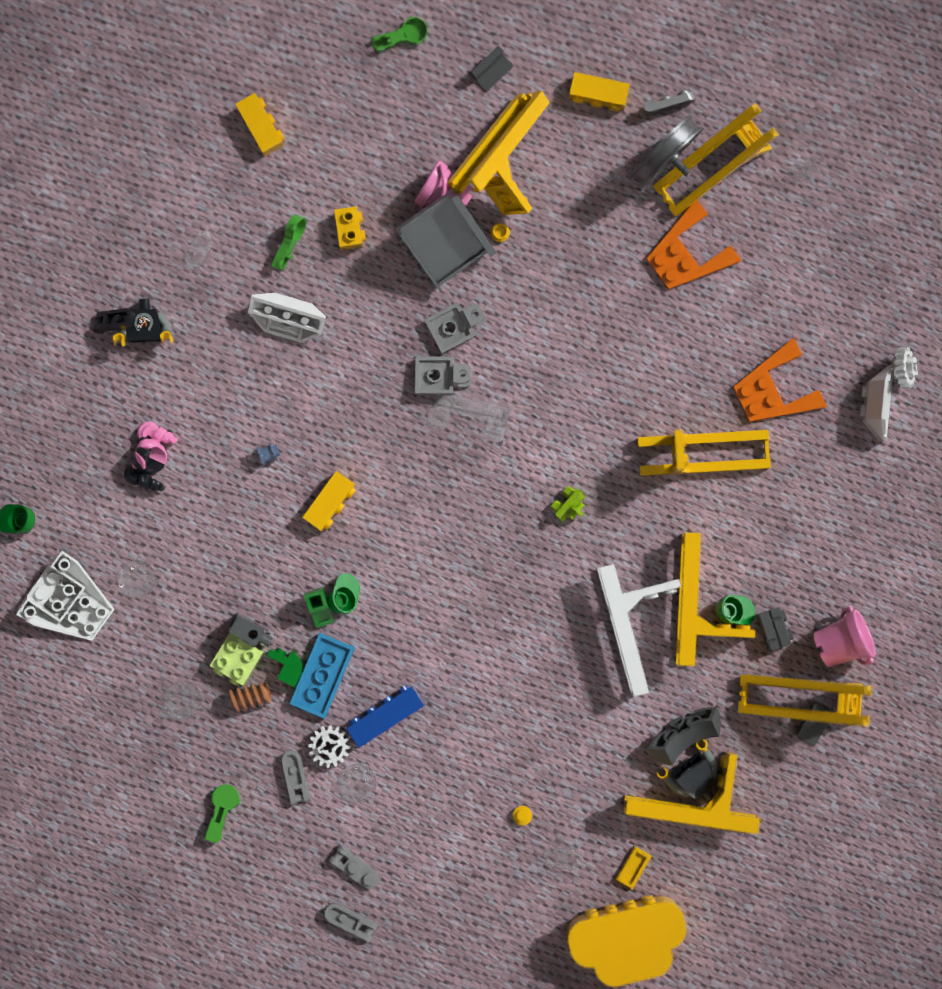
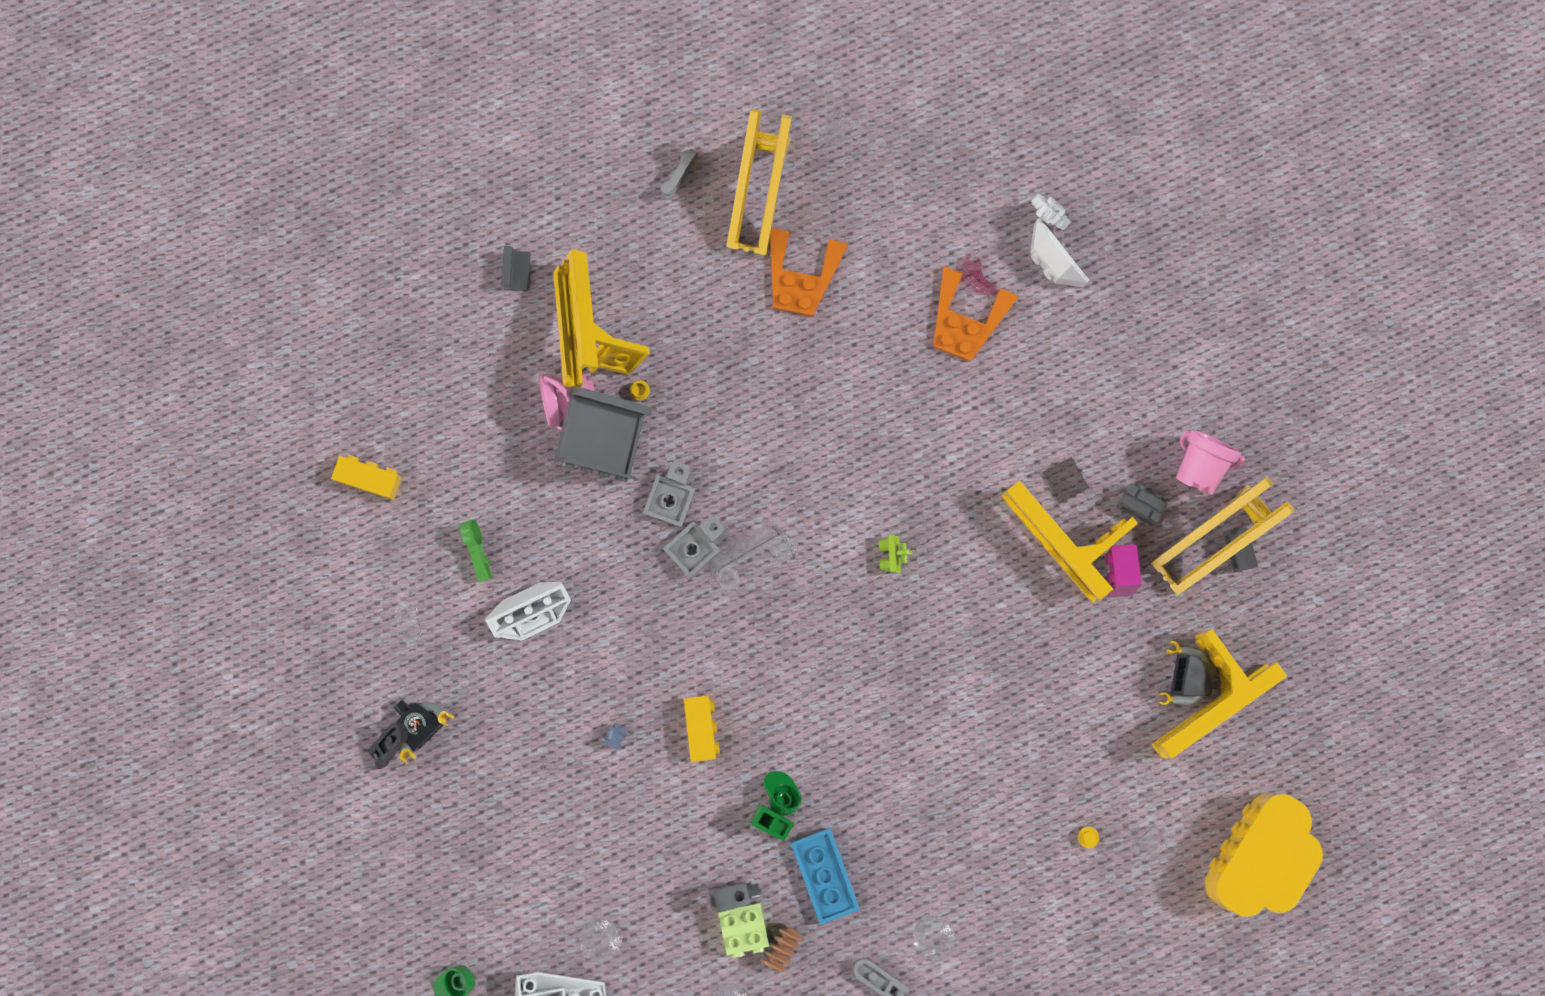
camera: 50 degrees left, 5 degrees down
(149, 456) = (519, 829): hair -> none
(292, 666) = (793, 890): green brick -> none
(332, 754) = (875, 924): white gear -> none
(348, 228) = (515, 495): yellow brick -> none
(385, 716) = (906, 861): blue brick -> none
(413, 28) = (424, 293): bright green piece -> none
(599, 91) = (616, 212): yellow brick -> none
(618, 608) = (1009, 599): white piece -> none
(633, 867) = (1212, 796): yellow tile -> none
(667, 152) = (716, 208): flat silver wheel -> none
(680, 460) = (952, 437): yellow piece -> none
(683, 733) = (1151, 650): dark grey brick -> none
(712, 664) = (1124, 570): none -> dark pink brick
(735, 610) = (1098, 517): green cap -> none
(737, 564) = (1065, 480): none -> clear smoke piece
(808, 366) = (975, 277): none -> clear pink piece

